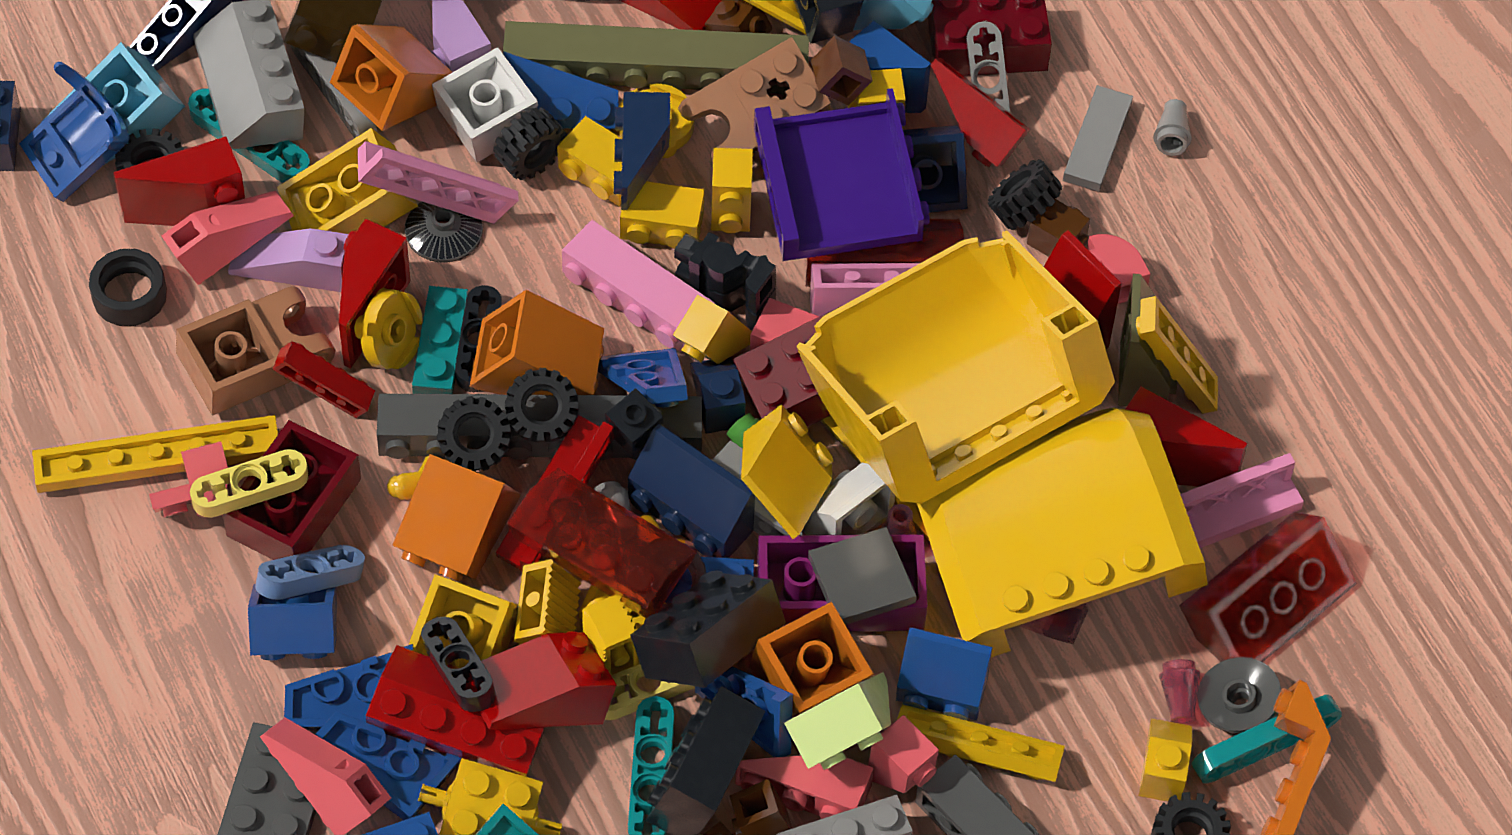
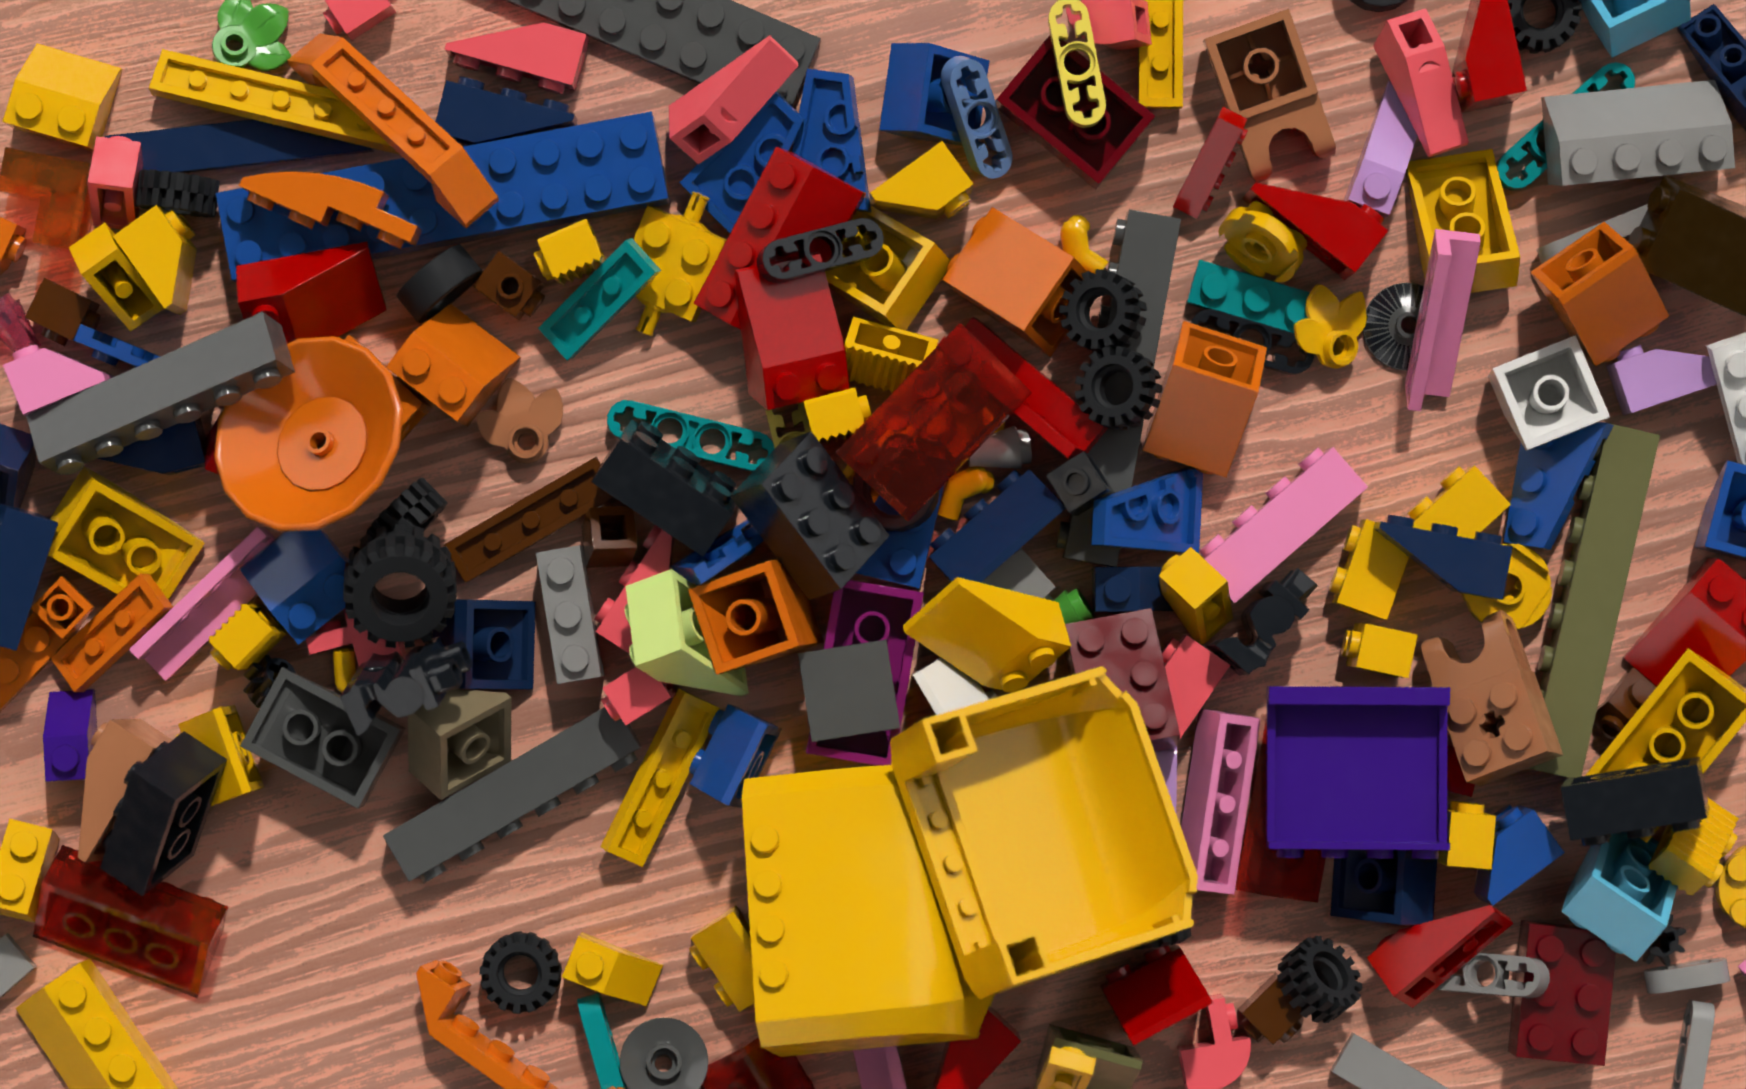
camera: 100 degrees right, 30 degrees up
(378, 596) = (926, 187): none -> yellow slope
(460, 275) = (1329, 323): none -> yellow plate
(529, 143) = (1485, 435): black tyre -> none
(841, 70) = (1491, 798): reddish brown brick -> none
(1128, 644) = (727, 950): none -> yellow slope
(1180, 688) = (685, 1003): clear pink cone -> none

